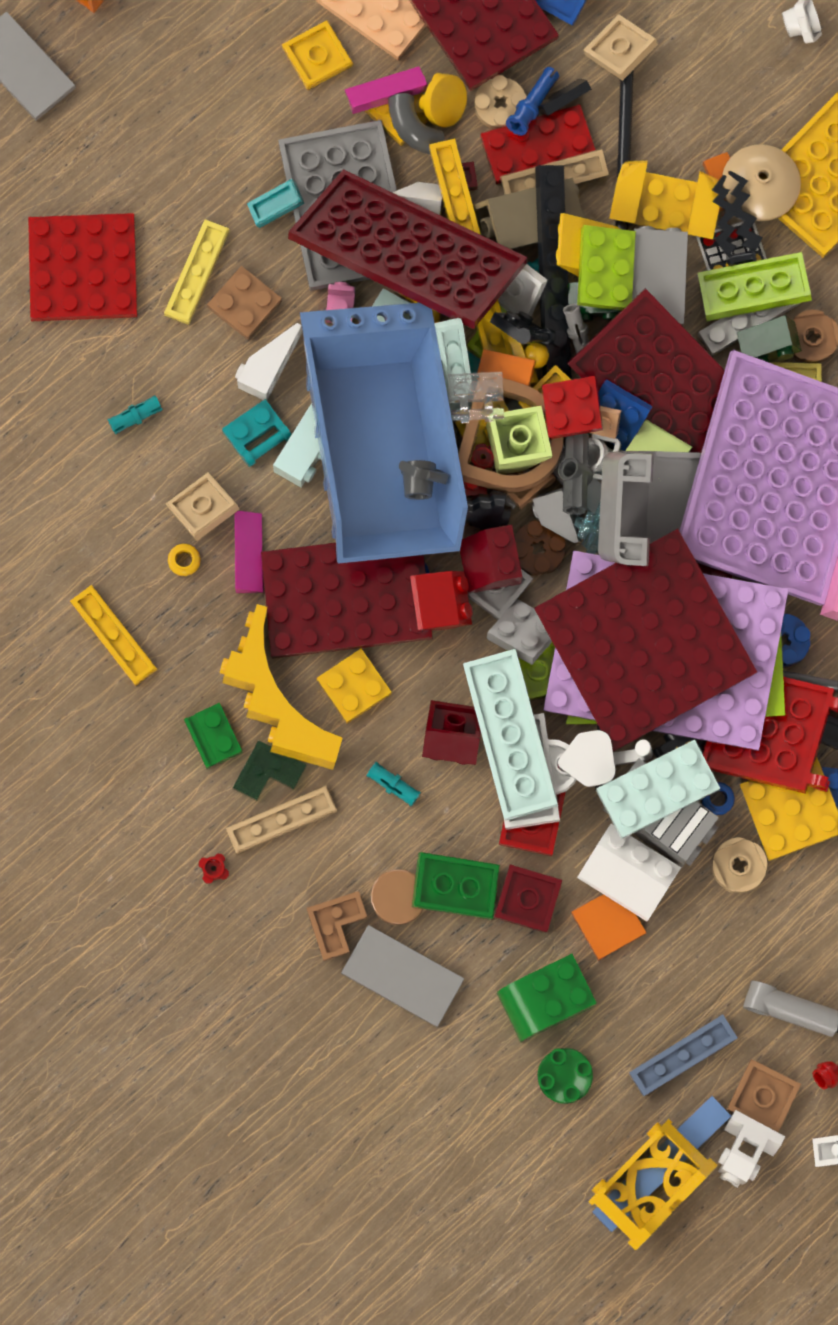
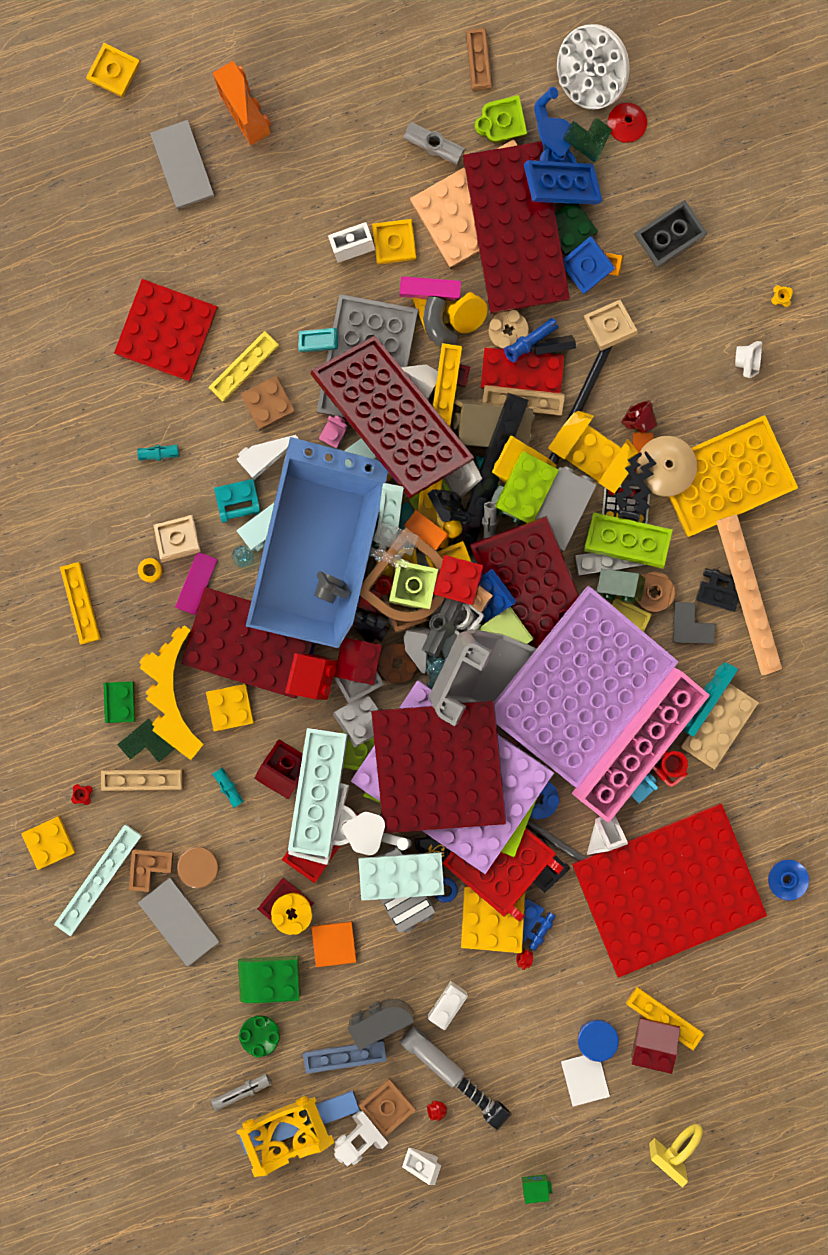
camera: 25 degrees right, 10 degrees up
(196, 946) = (48, 842): none -> yellow plate
(268, 73) = (351, 242): none -> white brick
(279, 965) = (98, 880): none -> light aqua plate
(292, 496) = (242, 556): none -> clear light blue tile
(455, 885) = (239, 876): green tile -> none
(553, 892) = (280, 917): none -> yellow plate
(594, 1130) = (221, 1102): none -> light grey pin
(629, 873) = (359, 920): white slope -> none
(705, 137) = (641, 416): none -> dark red piece
(707, 988) = (379, 1021): none -> dark grey brick
(732, 879) = (432, 933): tan plate -> none
(783, 936) = (447, 1005): none -> white brick

